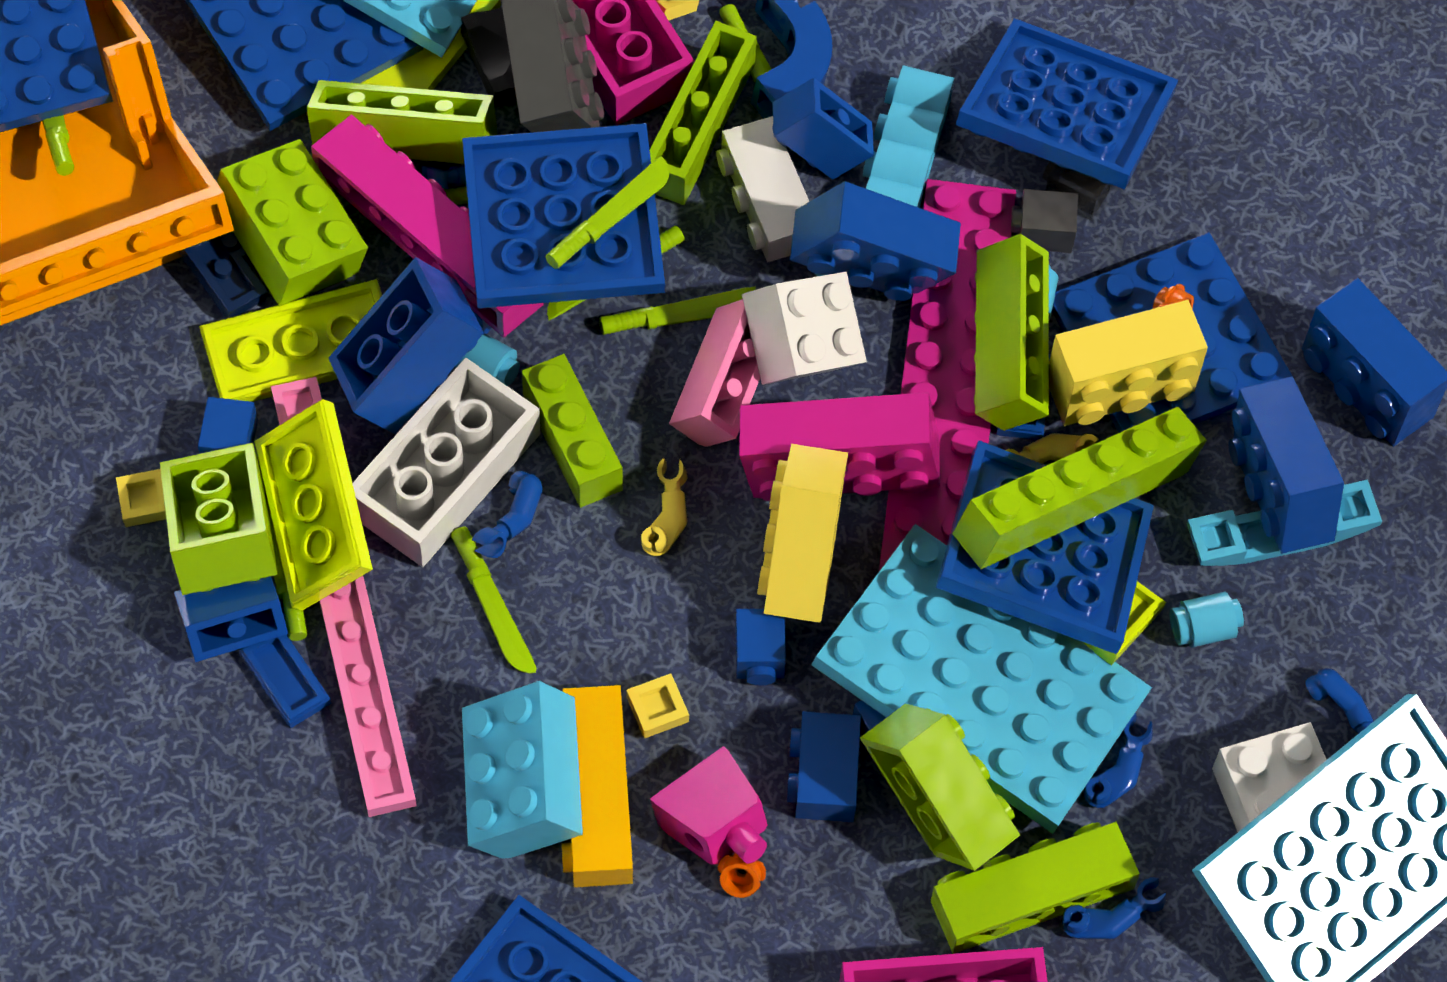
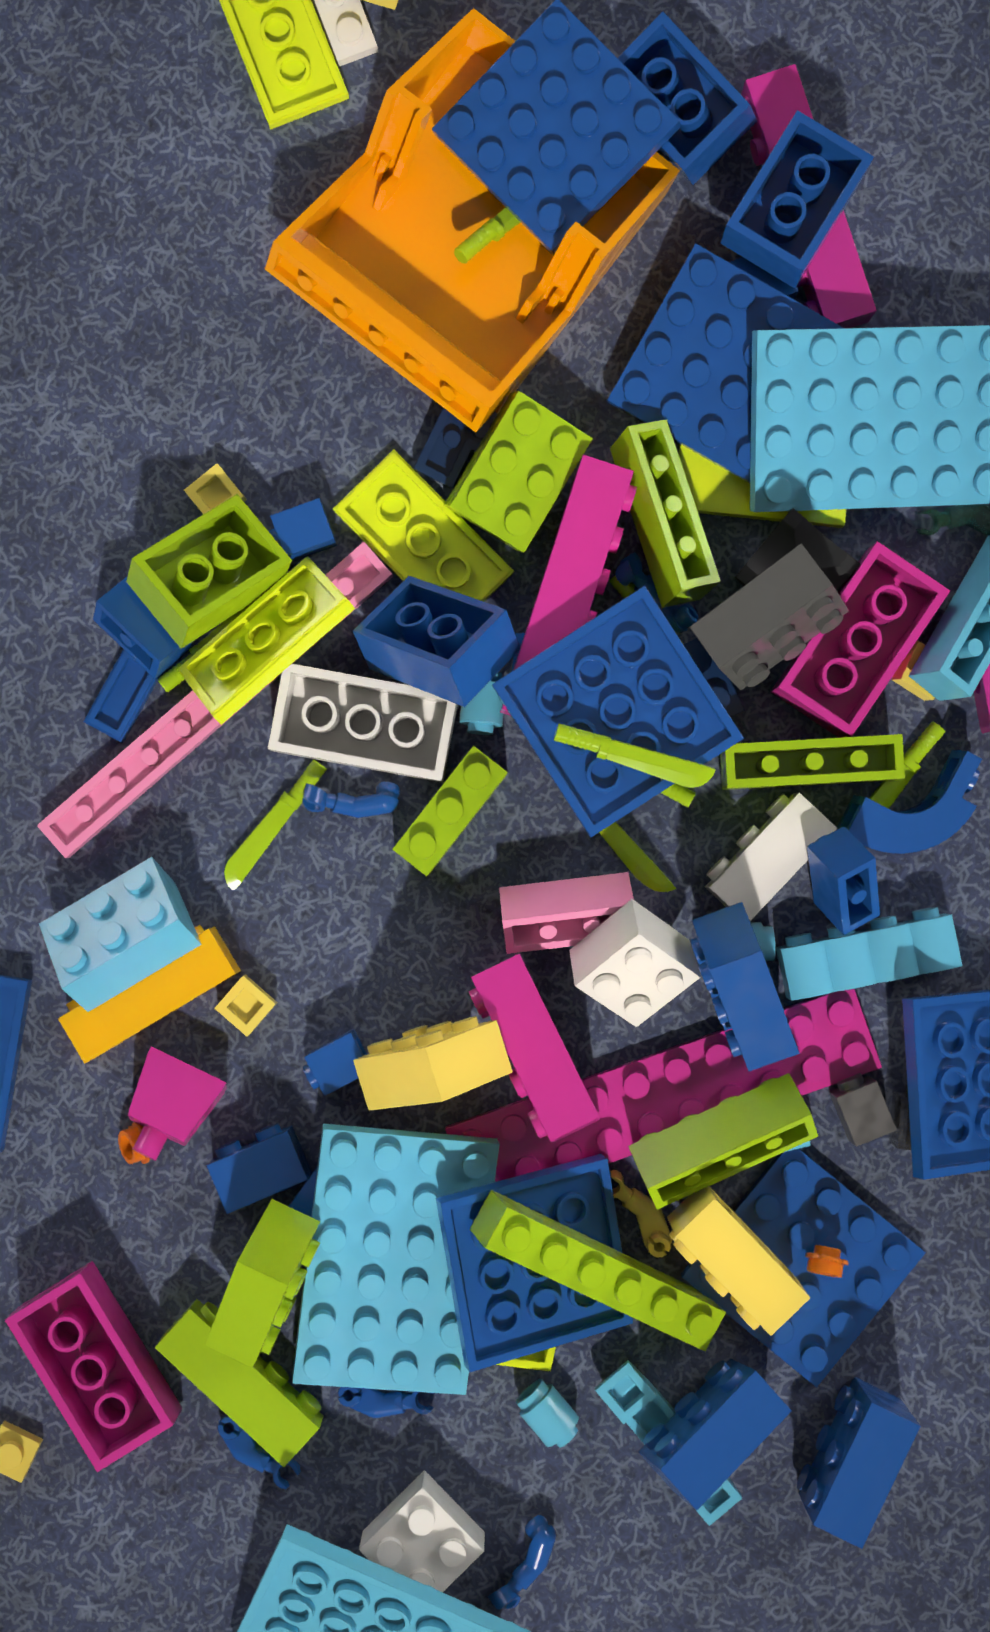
camera: 70 degrees right, 25 degrees up
(673, 519) = (420, 931): light yellow arm -> none

